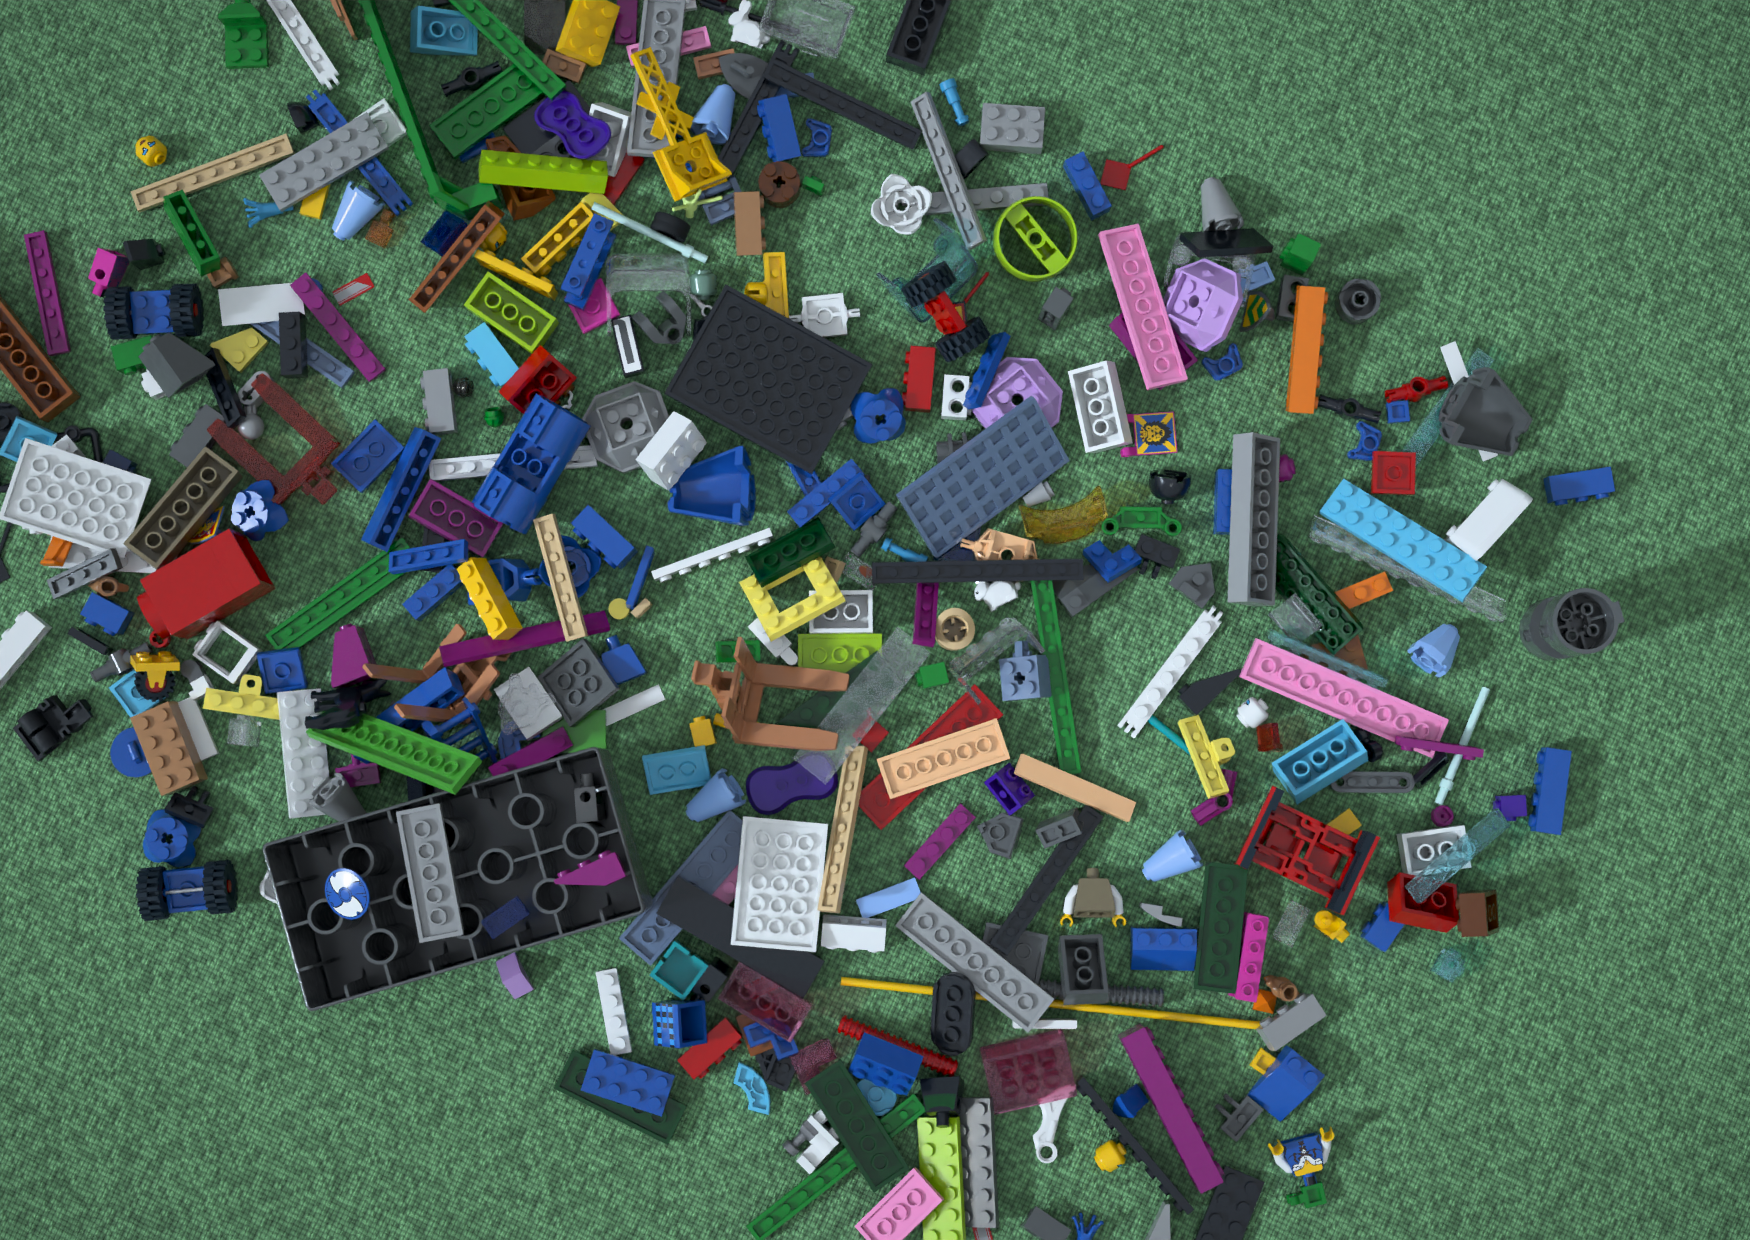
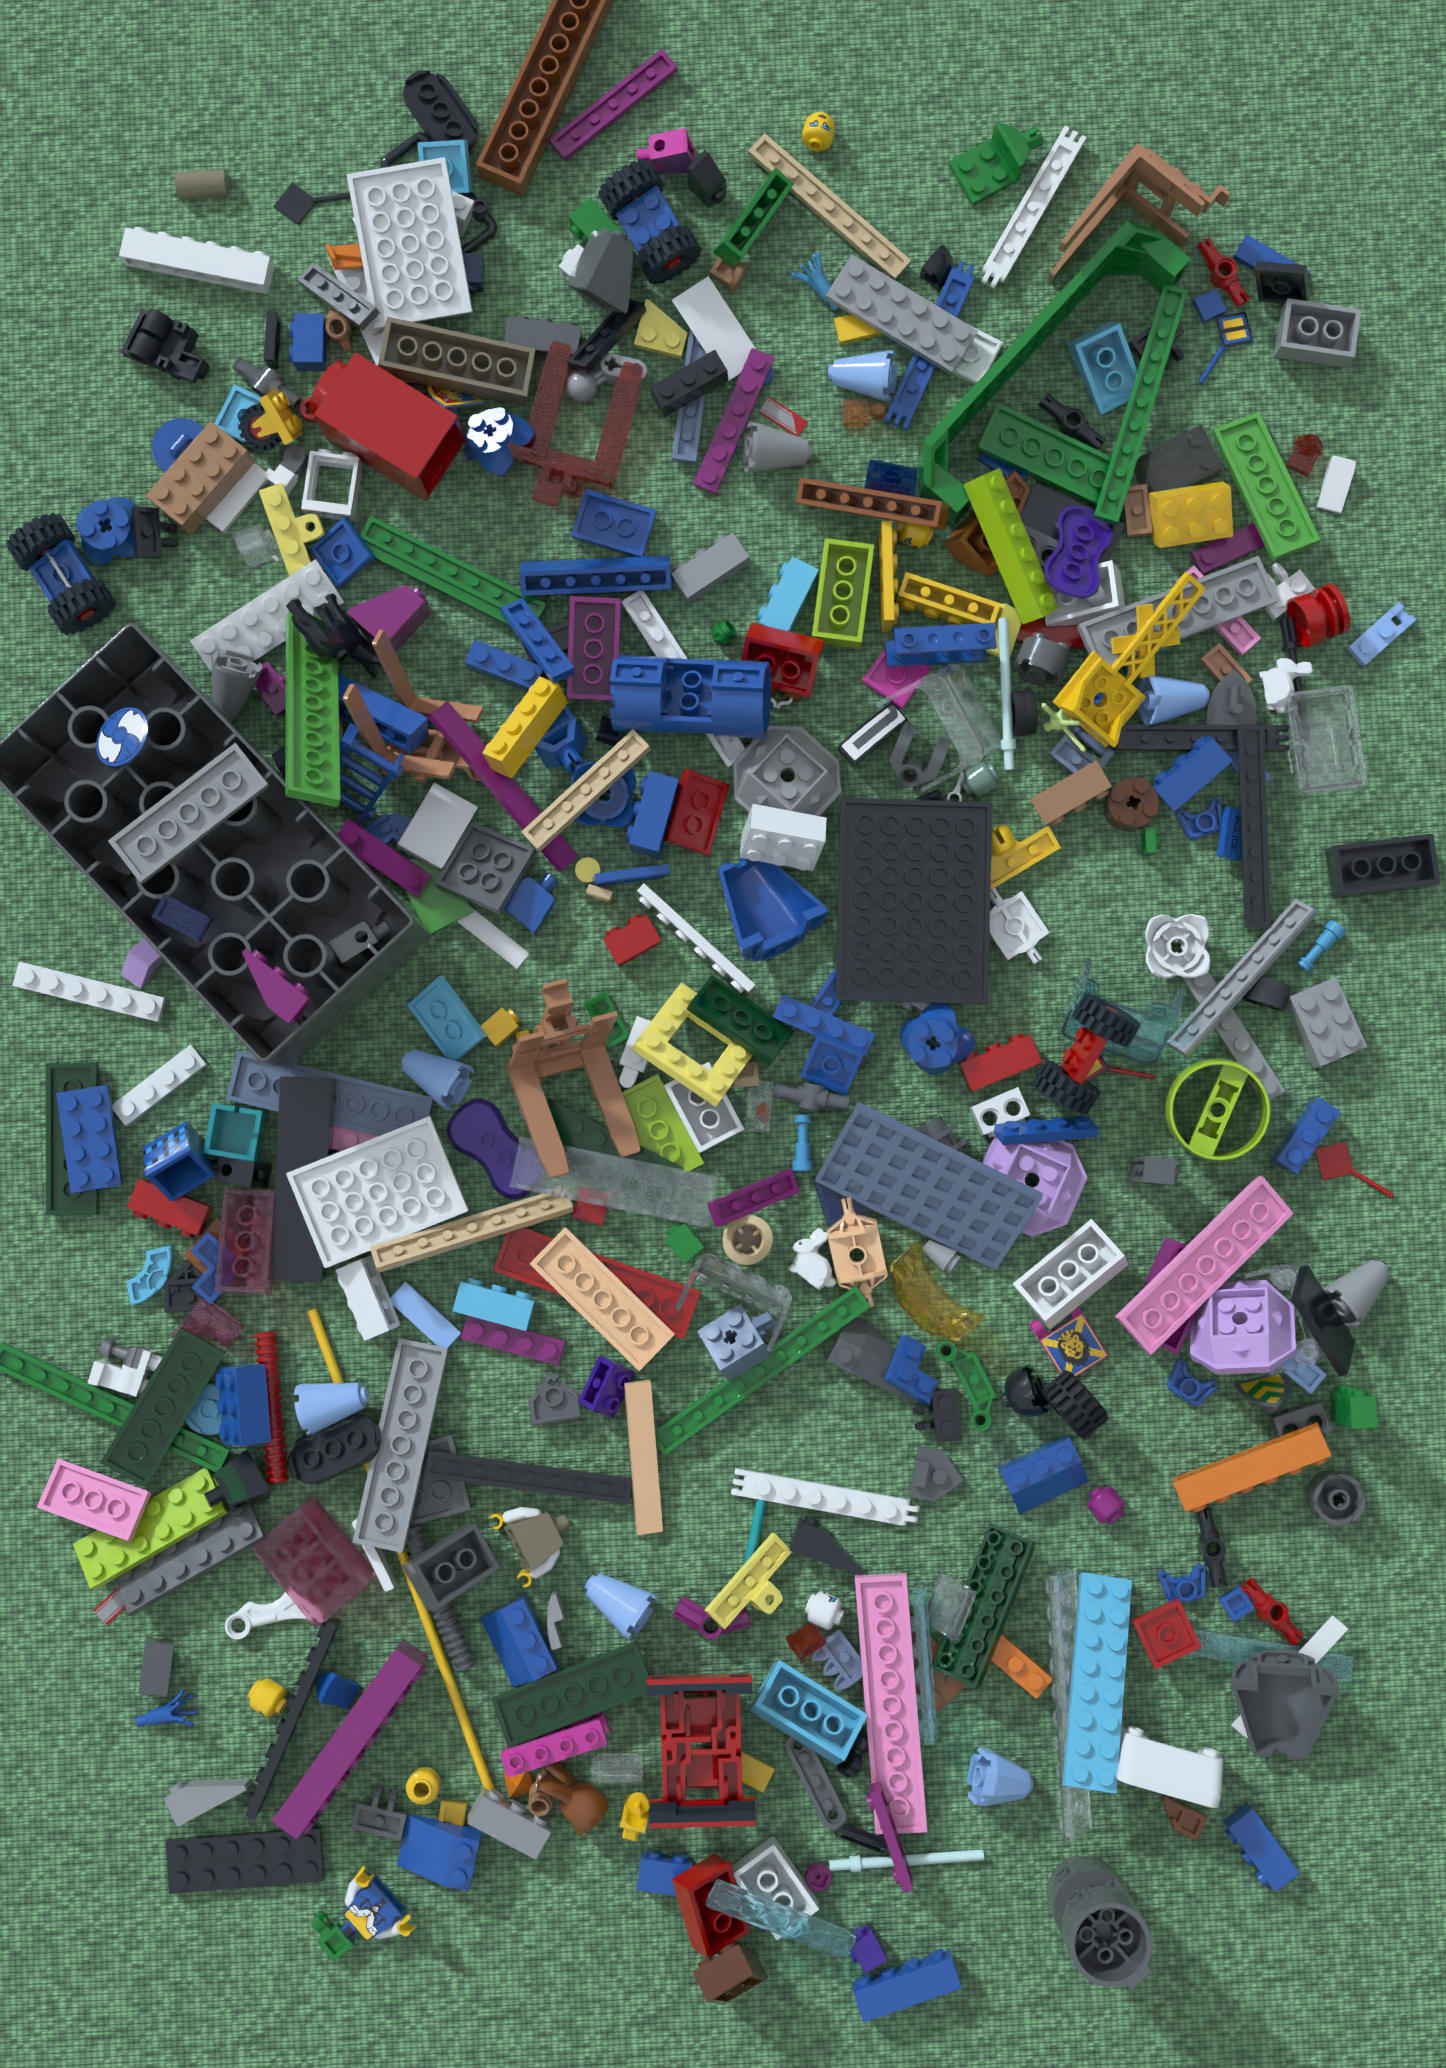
camera: 65 degrees right, 0 degrees up
(375, 309) = (773, 449): none -> light grey cone
(463, 387) = (738, 584): clear smoke plate -> none
(515, 1029) = (89, 992): none -> white plate
(522, 705) = (431, 820): clear tile -> none
(523, 541) = (607, 734): none -> black plate
(618, 505) = (696, 812): none -> red tile
(639, 193) = (1042, 660): none -> dark grey brick
(688, 602) = (632, 939): none -> red brick
(839, 124) = (1230, 838): none -> blue tile
(906, 841) = (494, 1304): none -> medium azure brick
(917, 1000) = (328, 1403): none -> light blue cone
(977, 571) = (823, 1233): black plate -> none
(1059, 828) = (591, 1463): dark grey hinge -> none
(1196, 452) = (1075, 1404): none -> black tyre
(1232, 1071) = (423, 1785): none -> yellow head
(1253, 519) = (1034, 1506): light grey brick -> none
(1294, 717) = (842, 1659): none -> sand blue plate
(1299, 962) = (578, 1800): none -> dark orange piece
(1448, 965) = (658, 1966): clear light blue brick -> none
(1532, 529) = (1184, 1818): none -> dark orange tile

